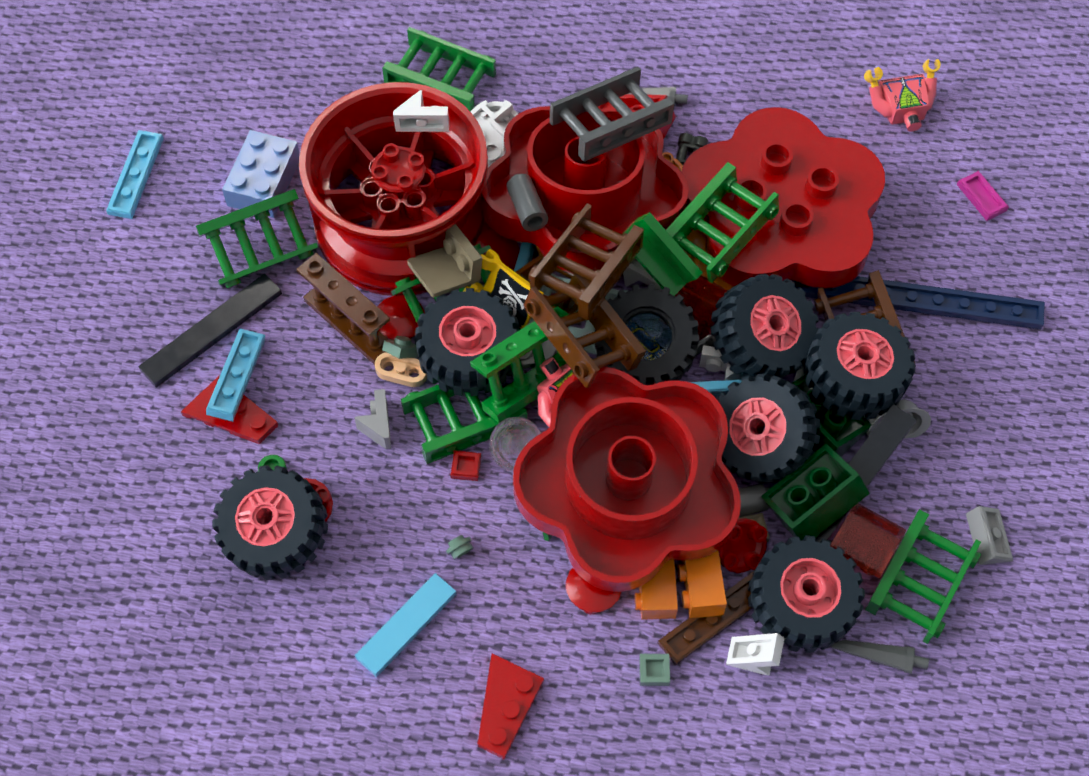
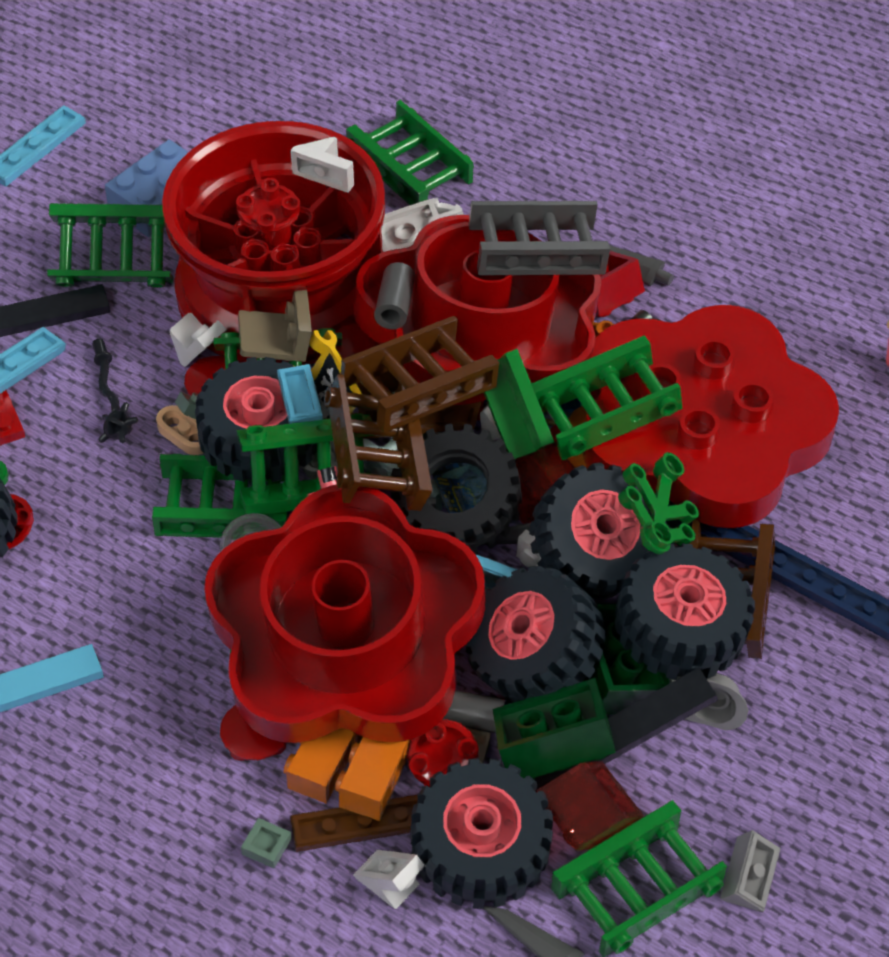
camera: 25 degrees right, 10 degrees down
(344, 307) = (155, 339): reddish brown fence -> none
(347, 385) = (118, 422): none -> black piece
(376, 290) = (192, 337): none -> white slope
(377, 424) = (127, 472): light grey slope -> none
(459, 546) = (133, 628): sand green plate -> none
(466, 465) = (194, 552): red tile -> none
(497, 312) = (299, 394): none -> medium azure tile
(506, 704) = (83, 809): red wing -> none
(823, 317) = (654, 532): none -> green plant

